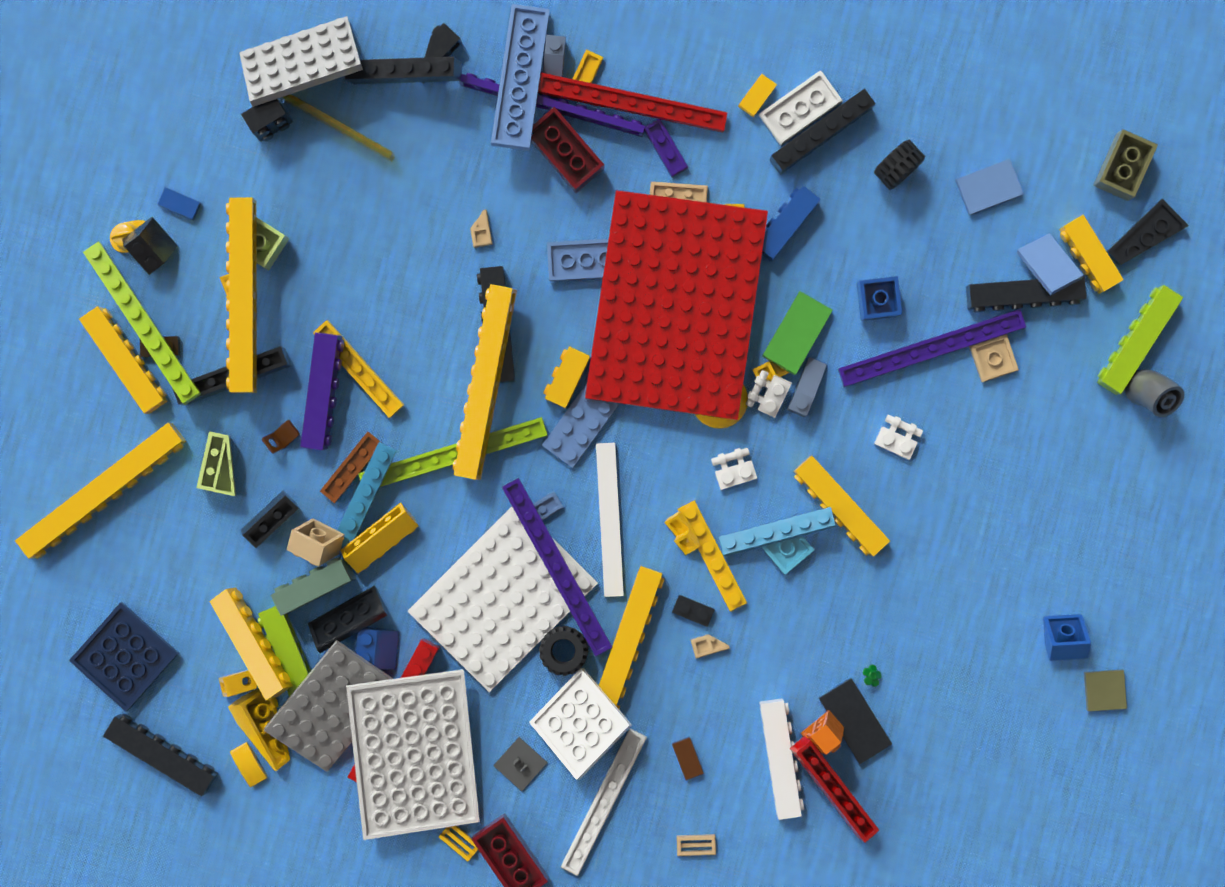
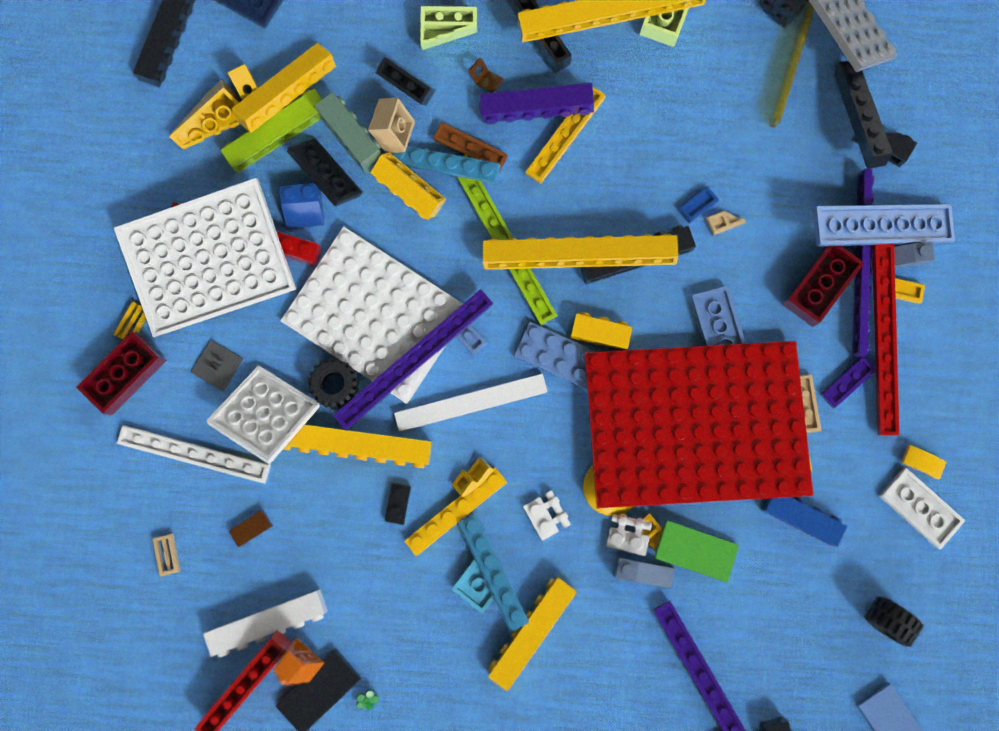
camera: 75 degrees right, 5 degrees down
(248, 765) = (170, 111): yellow slope -> none
(317, 712) = (229, 157): light grey plate -> none
(458, 252) = (698, 204): none -> blue tile
(707, 645) = (366, 525): tan tile -> none
(822, 131) = (905, 535): black brick -> none
(879, 298) = (751, 628): blue brick -> none
(897, 443) = (608, 674): white plate -> none

